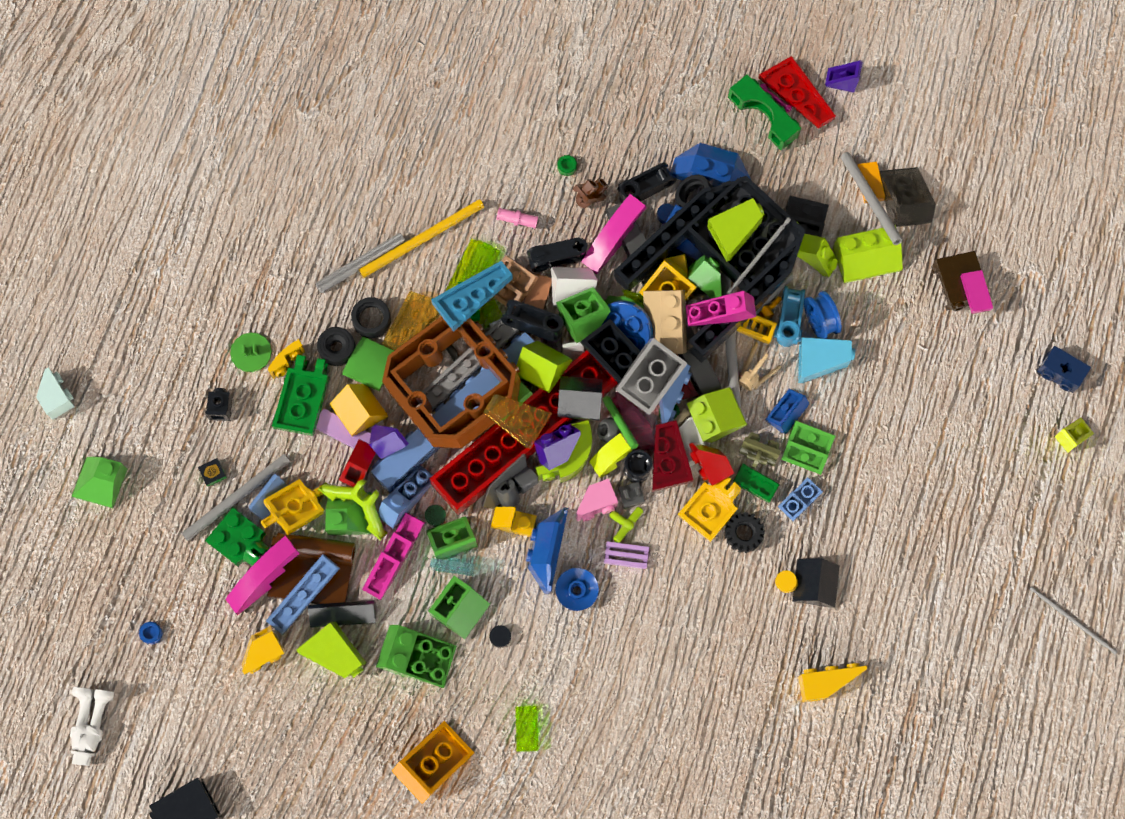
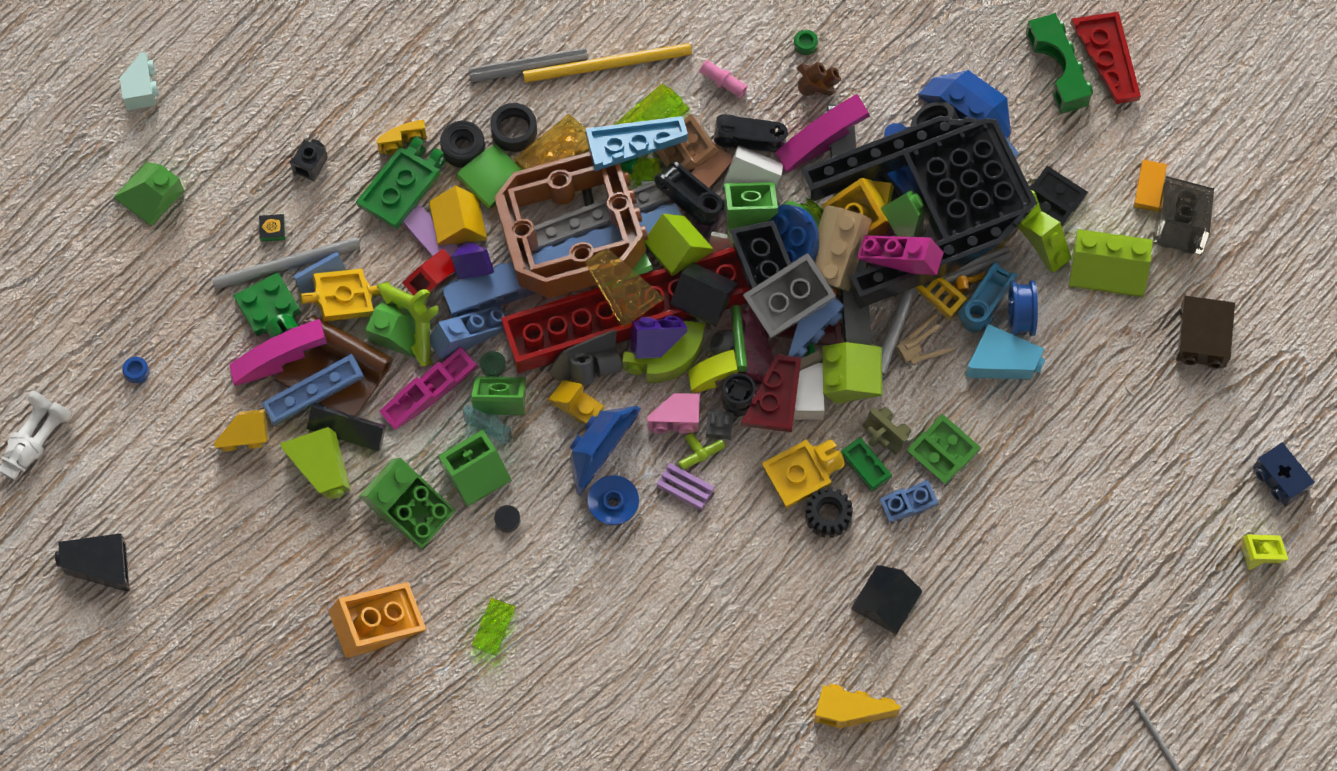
camera: 25 degrees right, 5 degrees down
(251, 352) = (368, 117): bright green piece -> none
(647, 183) = (889, 93): black piece -> none
(712, 462) = (822, 417): red slope -> none
(735, 226) = (957, 169): lime slope -> none
(759, 255) = (973, 210): light grey piece -> none
(786, 581) = (853, 583): yellow tile -> none
(787, 107) = (1071, 36): dark pink hinge -> none
(787, 411) = (939, 400): blue slope -> none
(844, 76) = (1171, 56): dark purple slope -> none
(871, 198) = (1138, 201): light grey piece -> none
(976, 292) = (1215, 348): dark pink tile -> none

